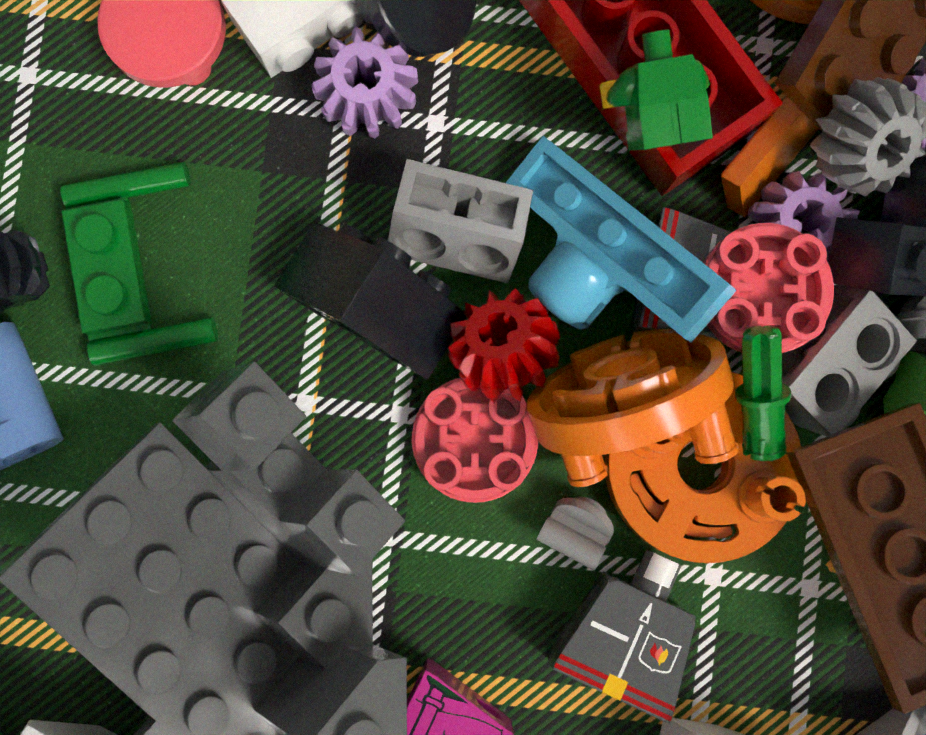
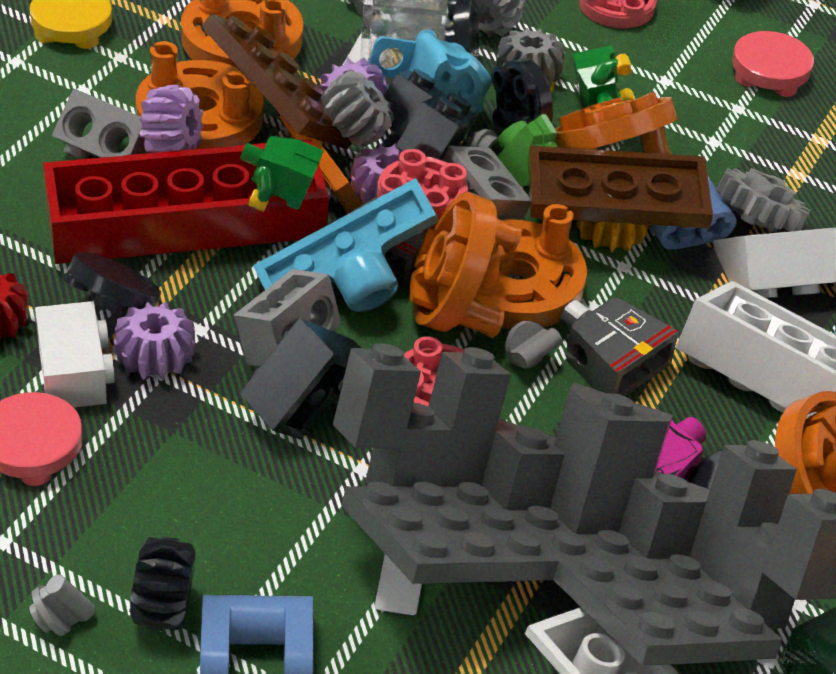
camera: 70 degrees left, 40 degrees down
(110, 270) = (217, 537): green plate -> none
(504, 345) = (388, 316): red gear -> none
(763, 394) = (461, 183): green axle -> none

